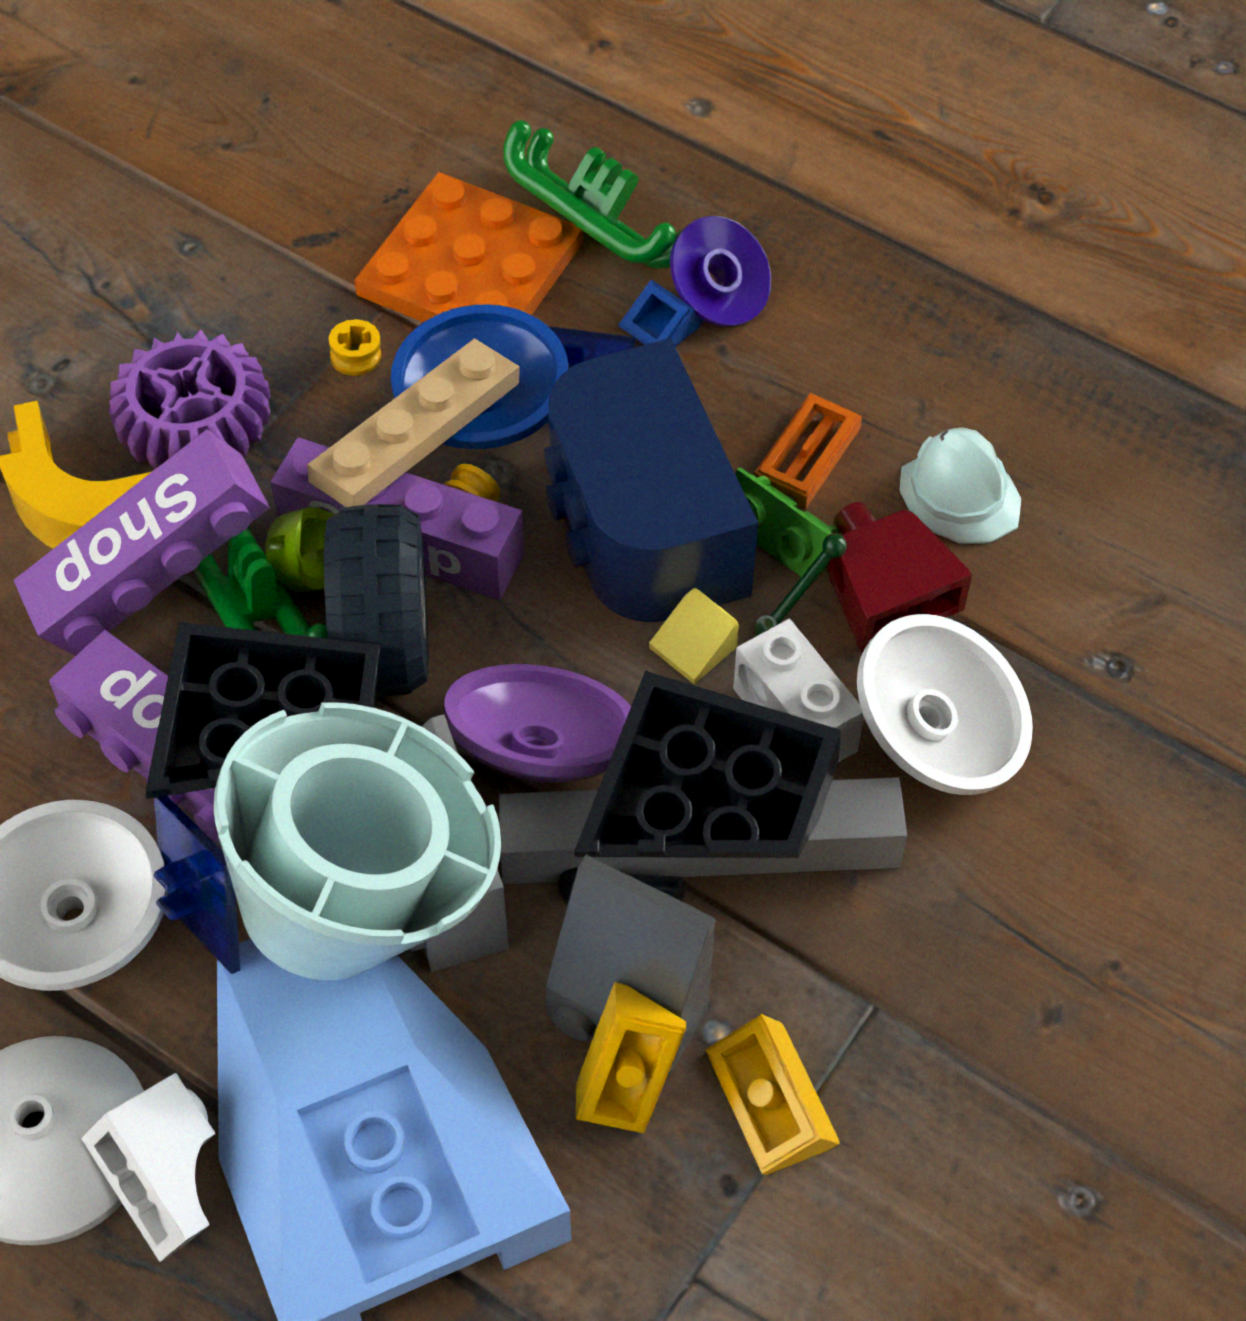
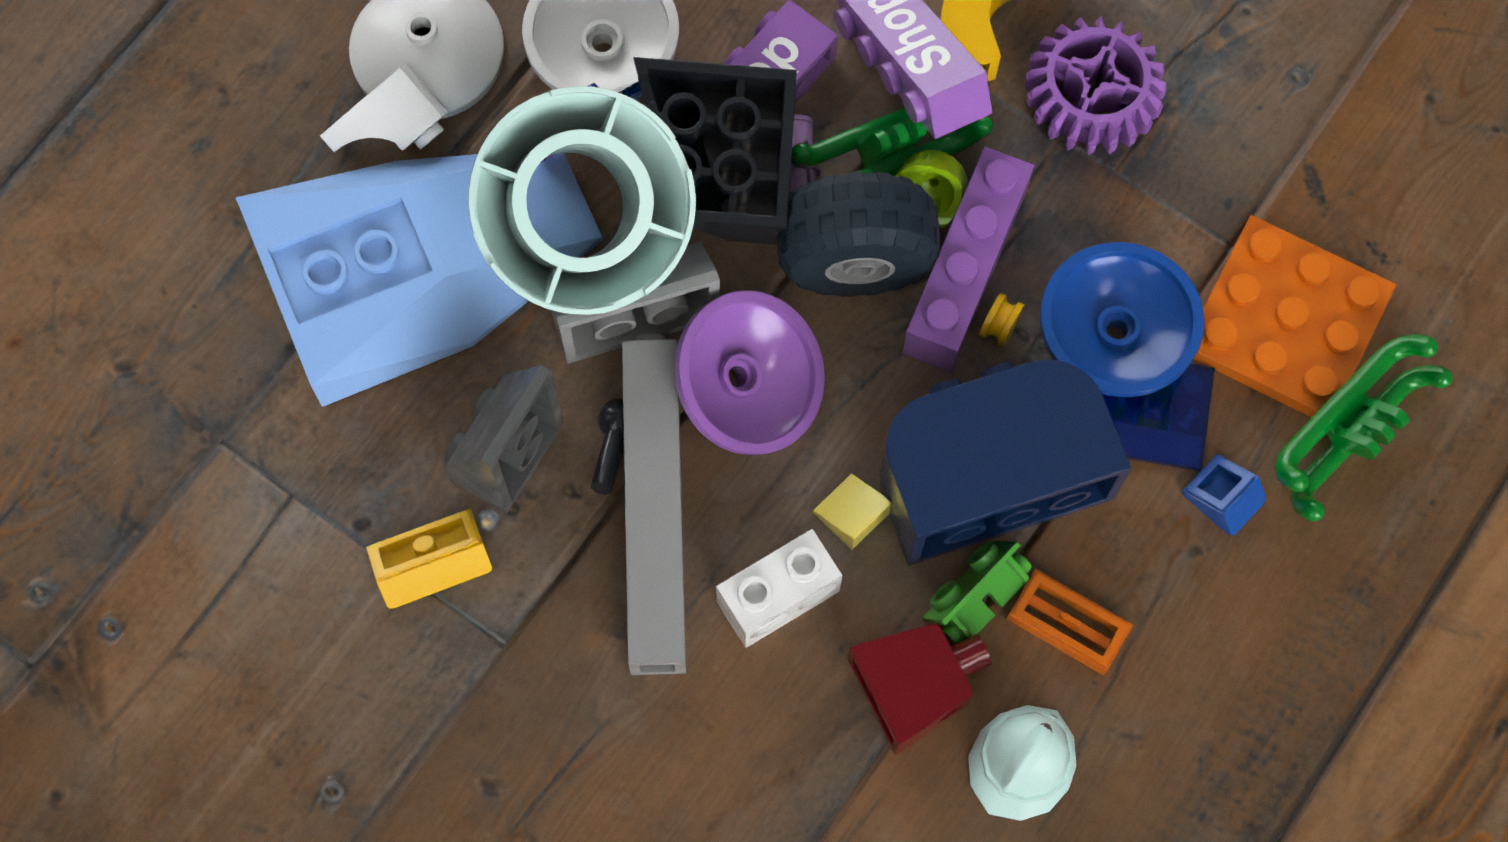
camera: 90 degrees right, 15 degrees up
(358, 361) = (1163, 230): yellow bush -> none
(413, 424) = (1043, 257): tan plate -> none
(627, 1061) = (437, 434): yellow slope -> none
(709, 778) = (653, 489): black wedge -> none
(733, 259) = (1271, 569): dark purple dish -> none
(833, 546) = (868, 576): dark green hinge -> none
(944, 704) = (755, 746): white dish -> none

